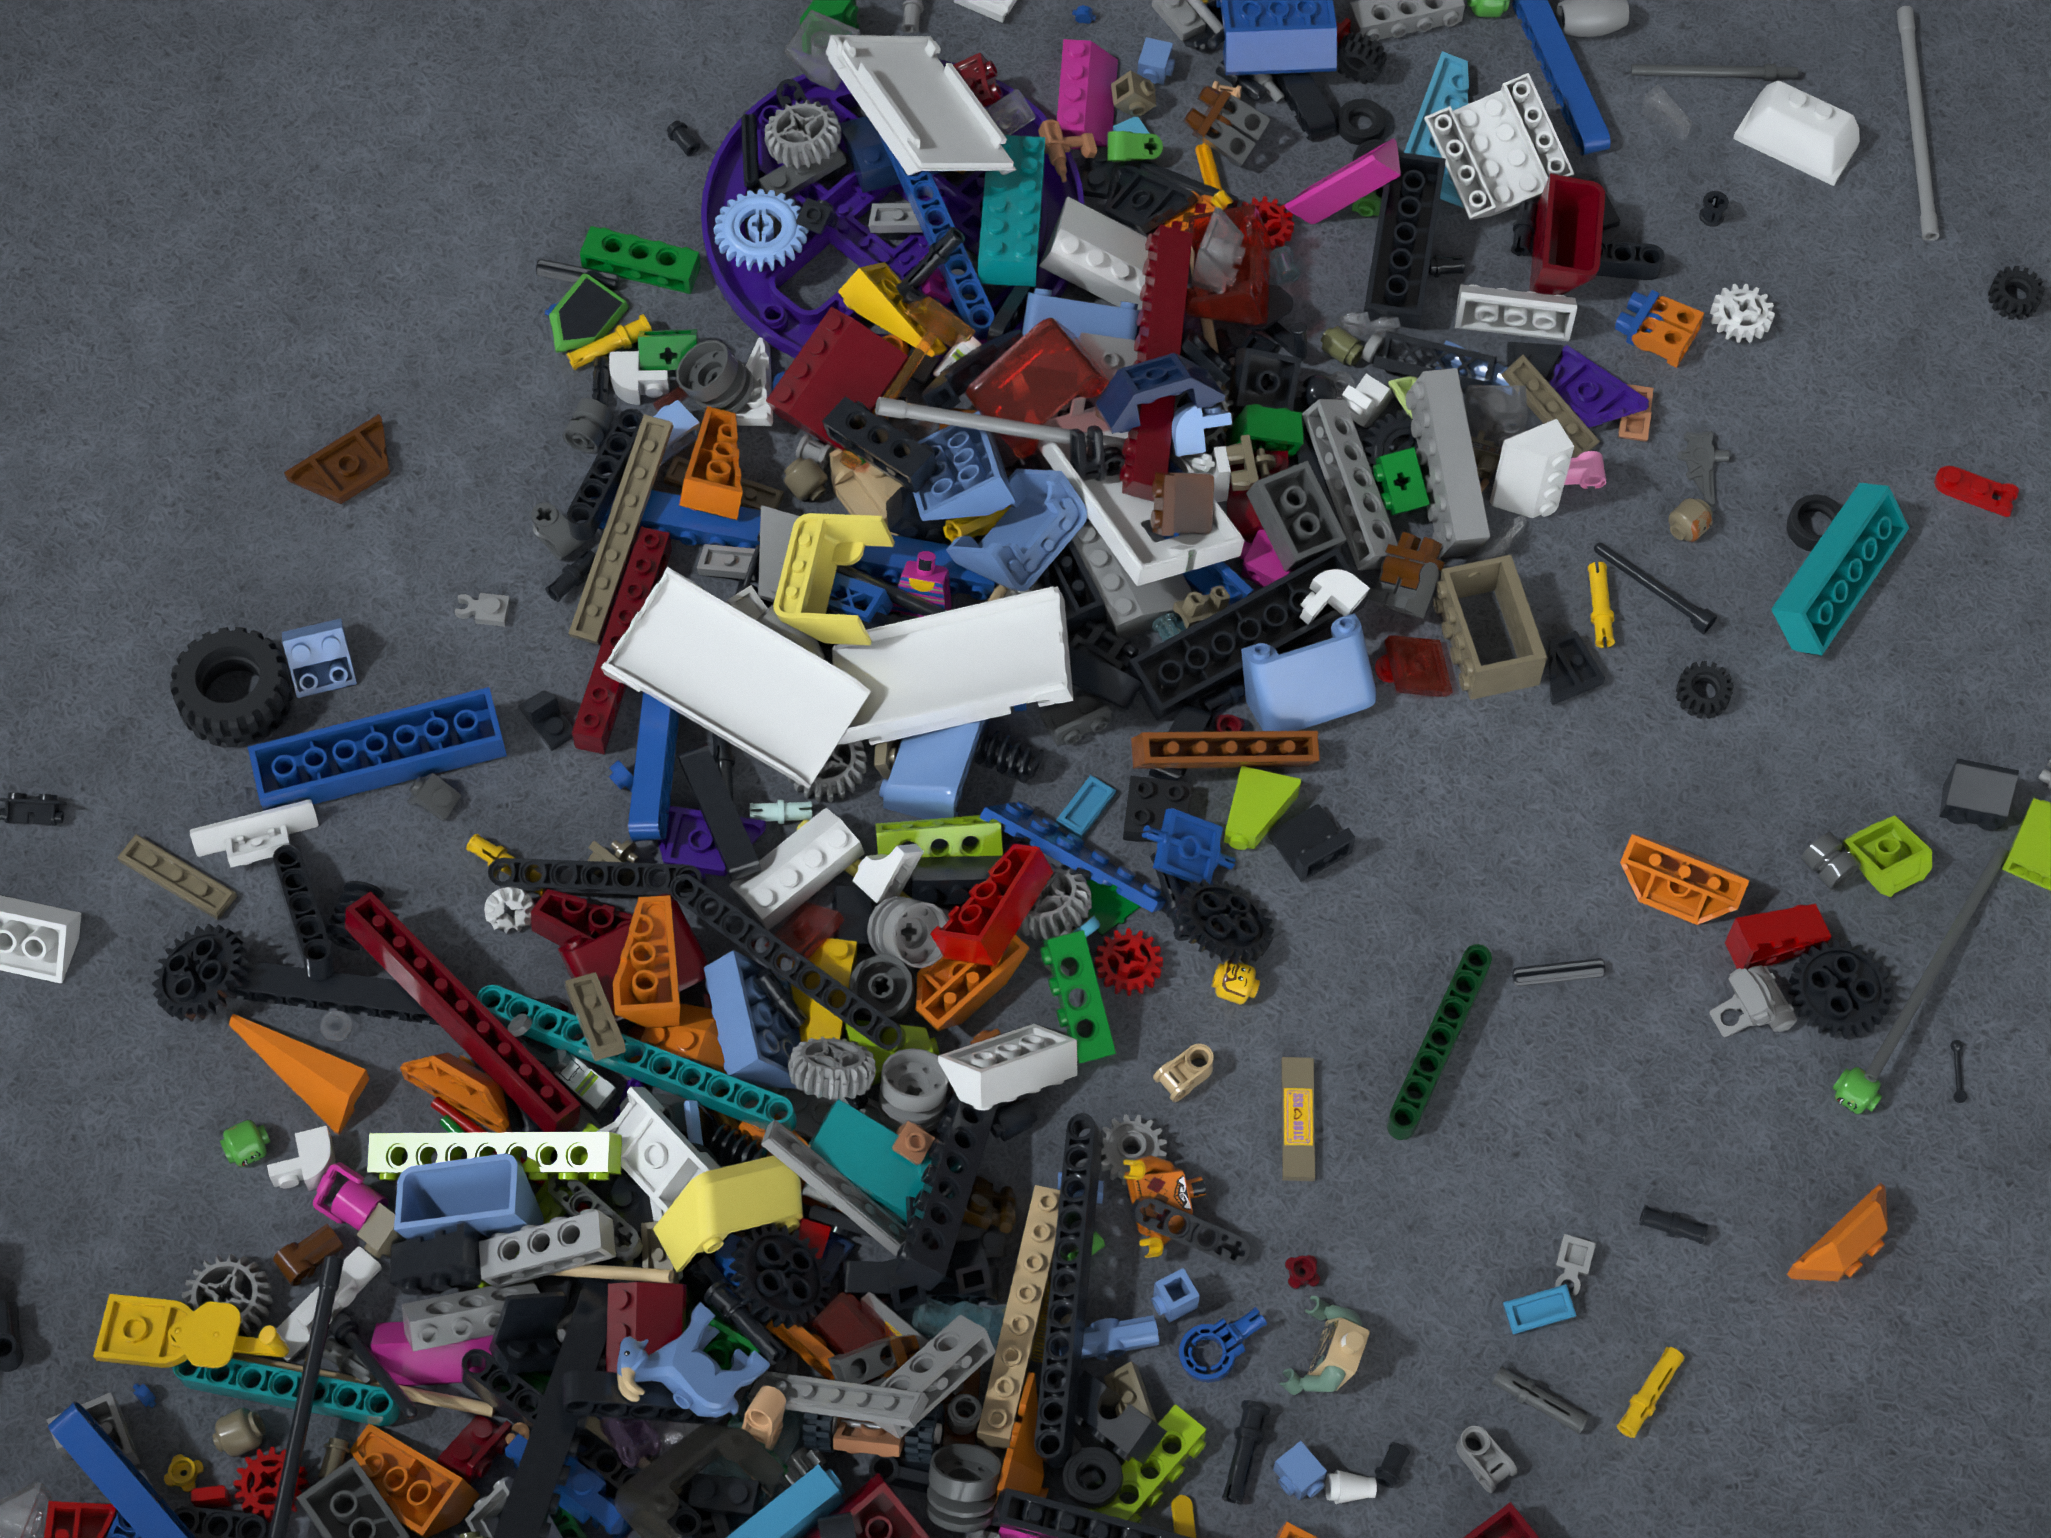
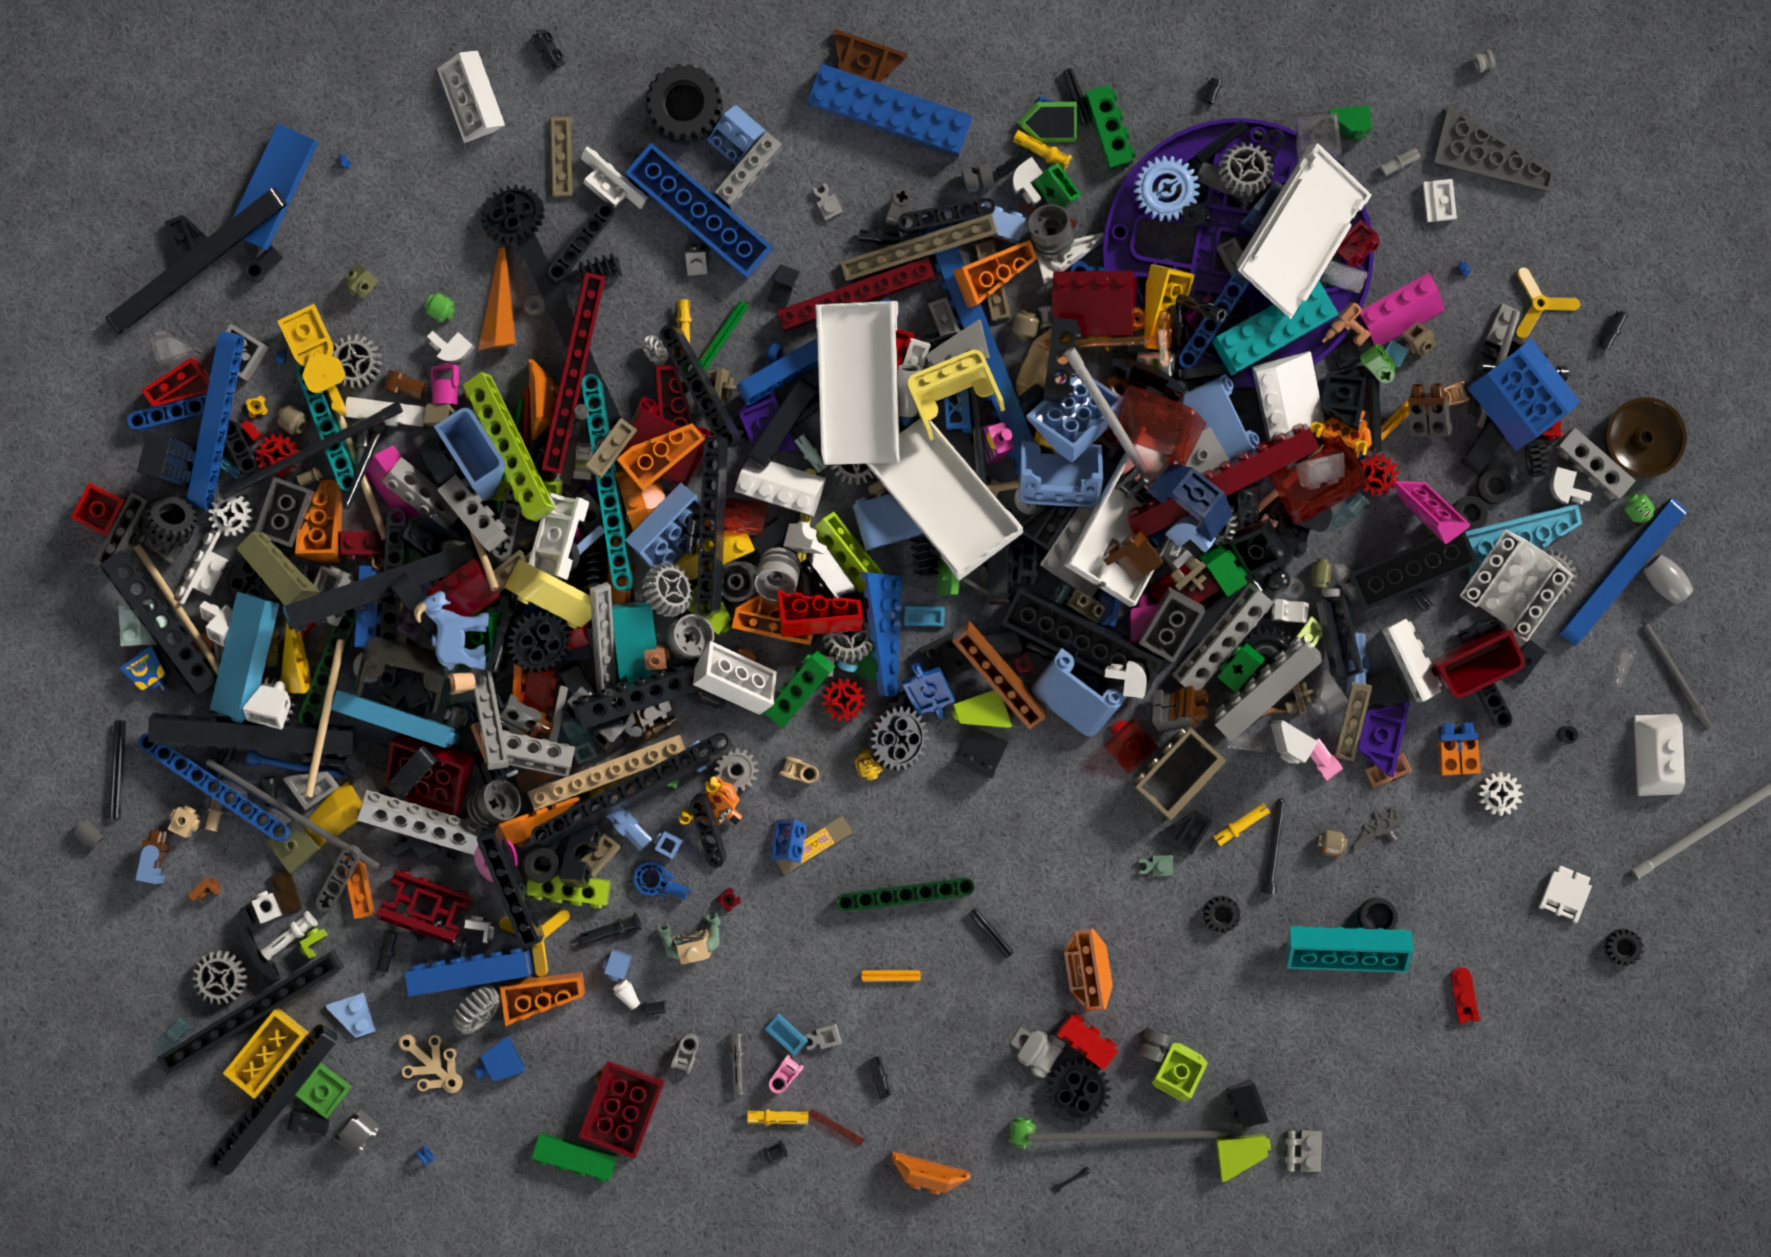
camera: 60 degrees right, 25 degrees up
(128, 1219) = (359, 281): none -> olive brick
(371, 660) = (748, 170): none -> light grey brick
(429, 471) = (890, 110): none -> blue brick
(552, 825) = (723, 334): none -> green axle
(966, 1405) = (528, 783): dark grey brick -> none
(1055, 735) = (947, 582): none -> bright green plate
(1156, 60) = (1454, 335): medium blue brick -> none
(1270, 1140) = (788, 840): none -> blue bracket
(1414, 57) = (1562, 487): none -> white brick
(1539, 1128) = (890, 975): none -> light orange axle
(1594, 725) = (1161, 865): none -> sand green plate
(1594, 1340) = (785, 1073): none -> bright pink piece
(1698, 1423) = (775, 1151): none -> black bush
(1711, 1324) = (836, 1127): none -> clear red bar
(1910, 314) = (1566, 893): none -> white plate

